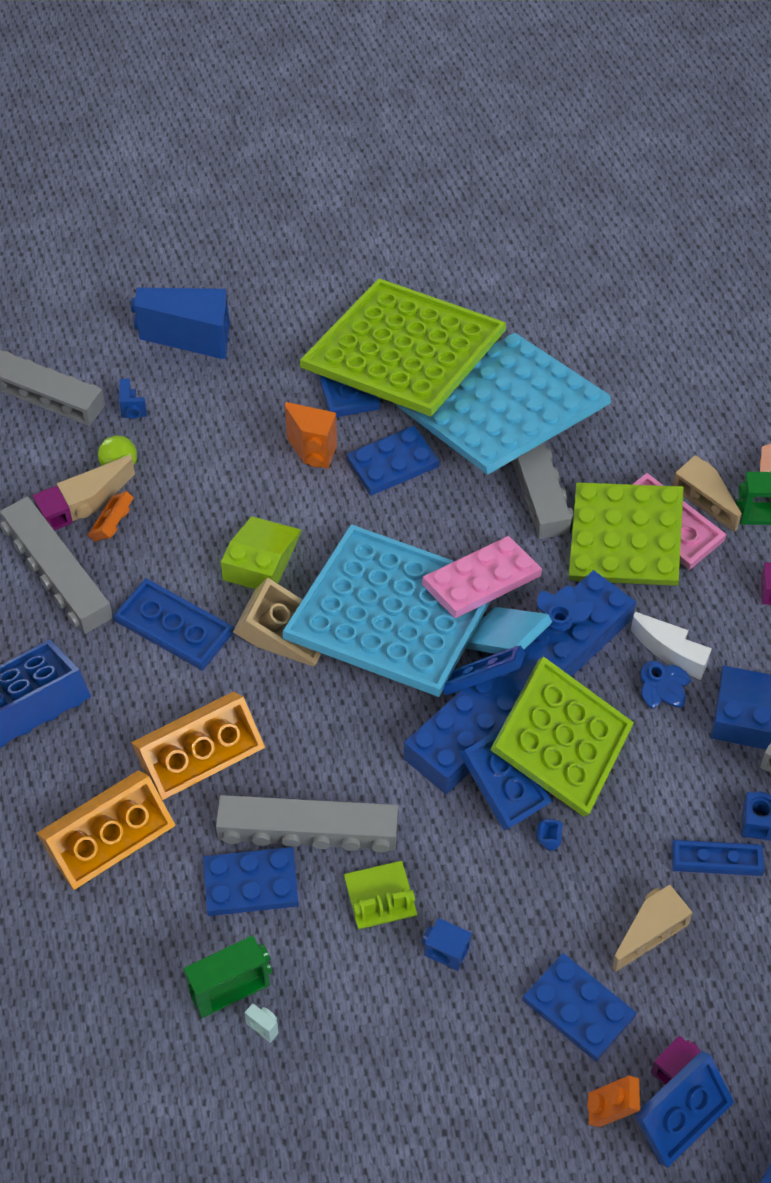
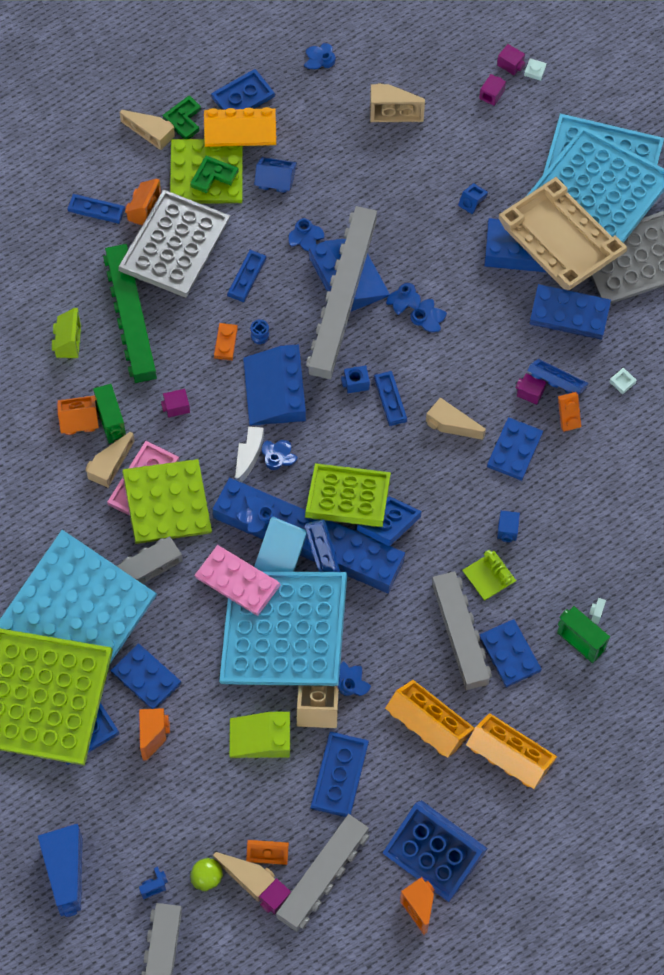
camera: 110 degrees left, 10 degrees up
(293, 672) = (352, 679): none -> blue plate
(549, 833) = (412, 490): blue piece -> none

